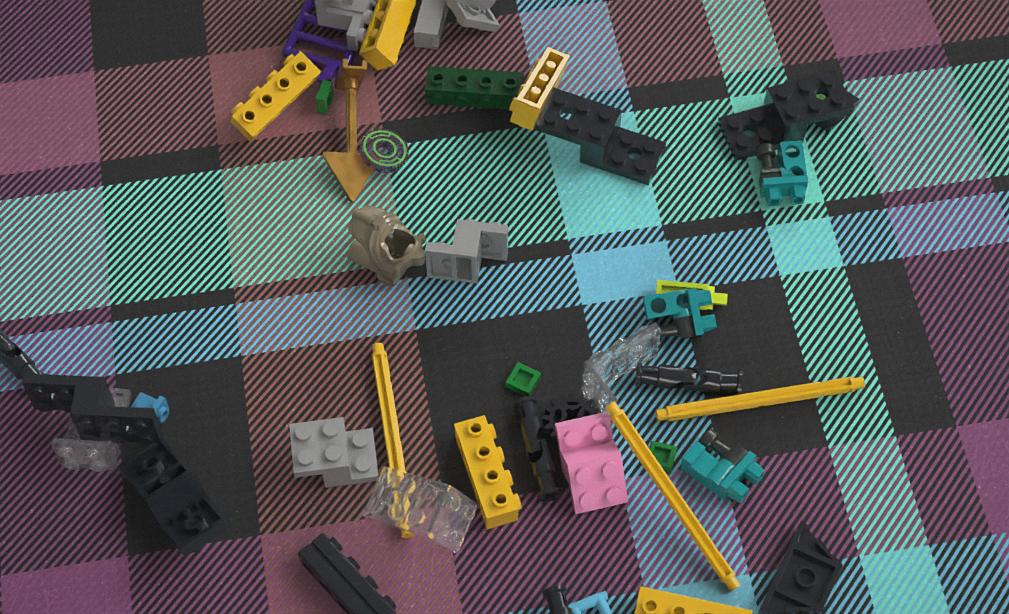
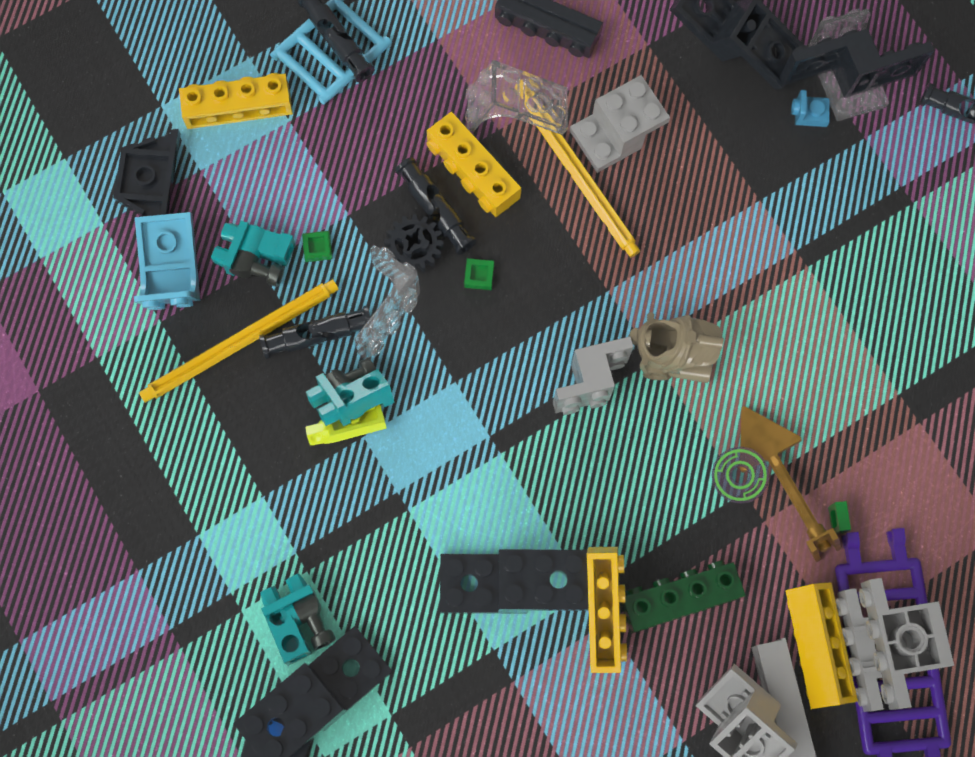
camera: 155 degrees right, 15 degrees up
(275, 96) = (891, 487): yellow brick -> none
(591, 462) = (377, 200): bright pink bracket -> none
(672, 495) = (292, 194): yellow piece -> none
(809, 472) = (167, 261): none -> medium azure bracket

